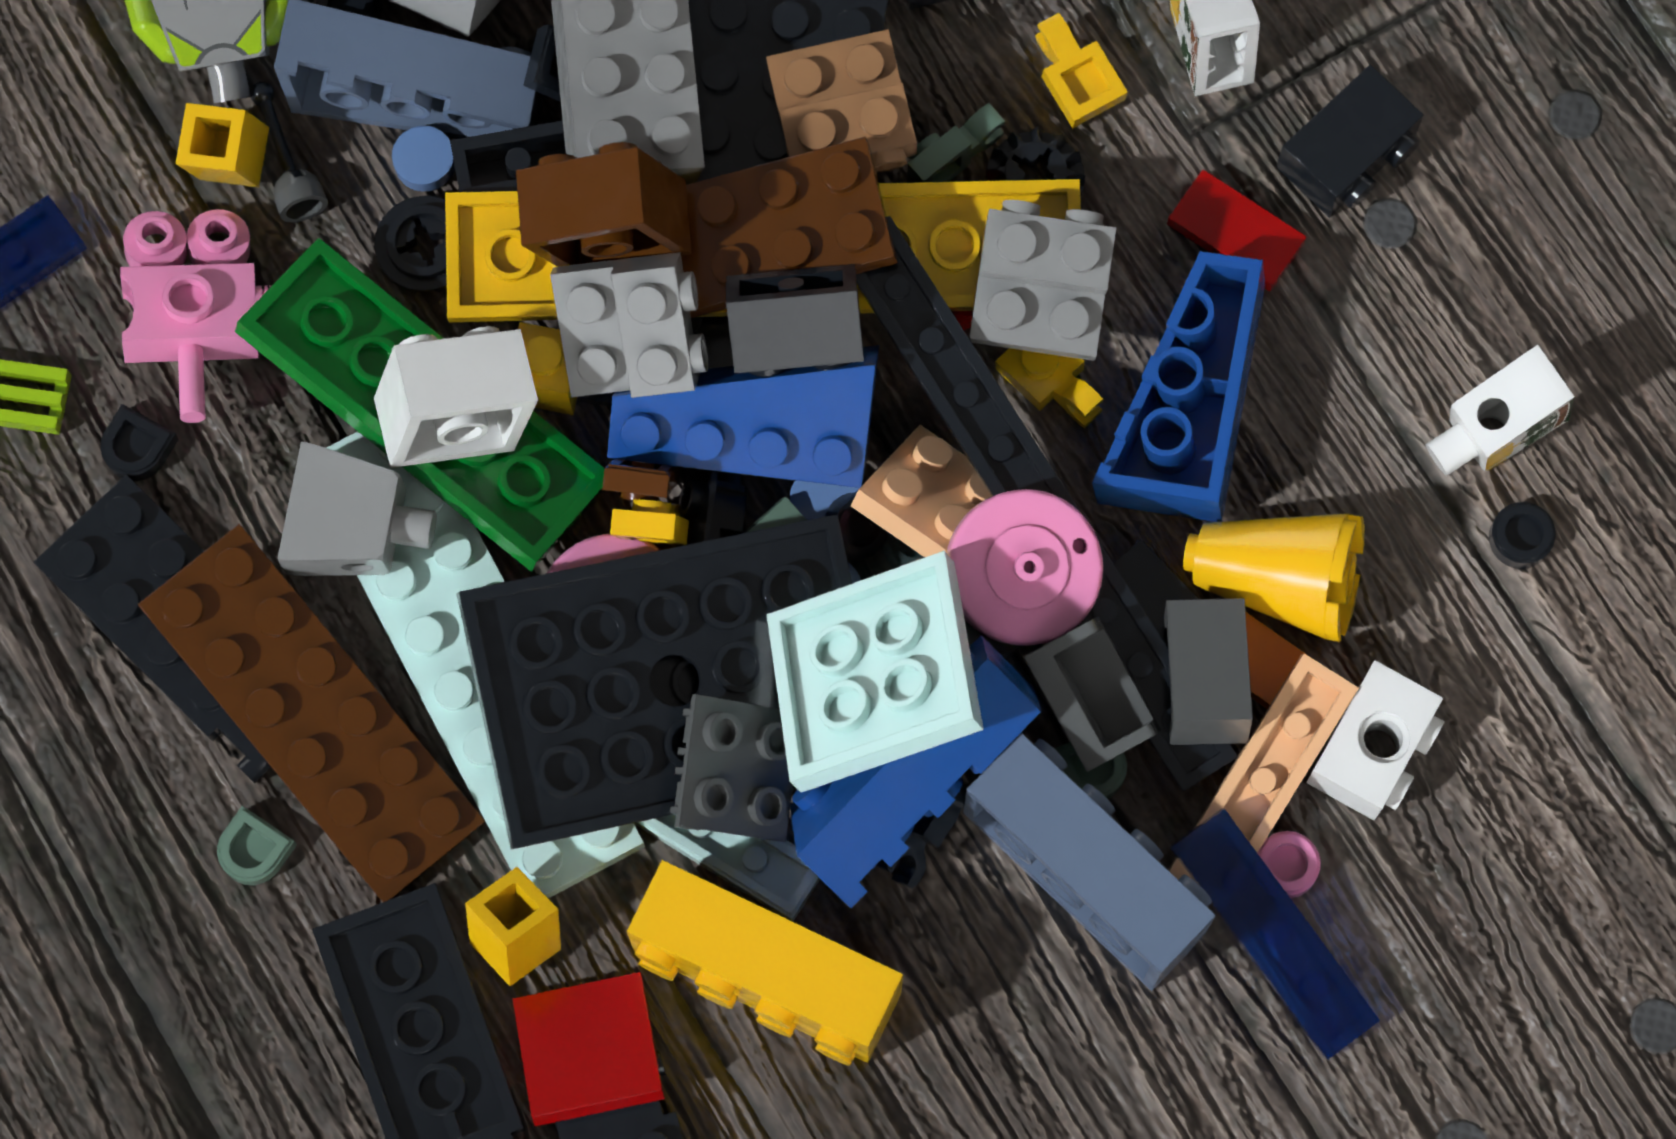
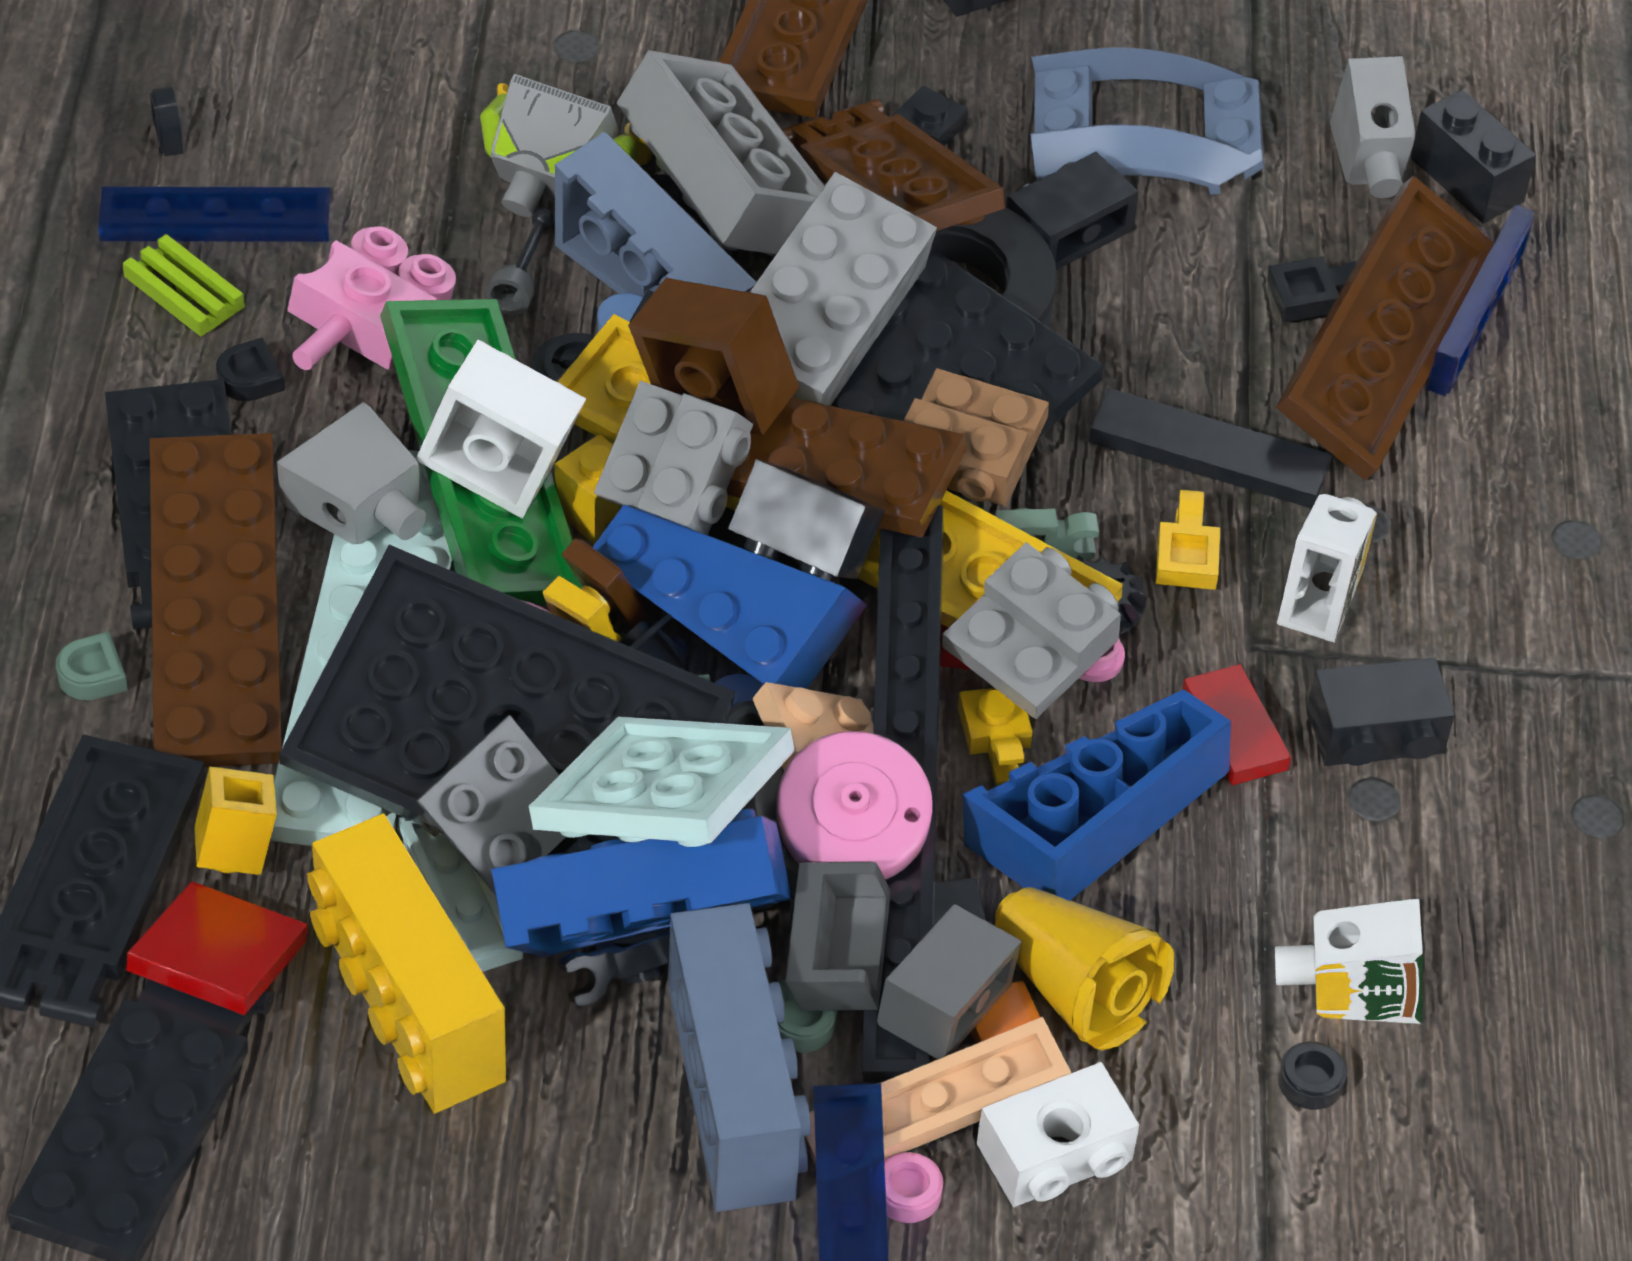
camera: 30 degrees right, 25 degrees down
(222, 145) = (481, 217): yellow brick -> none

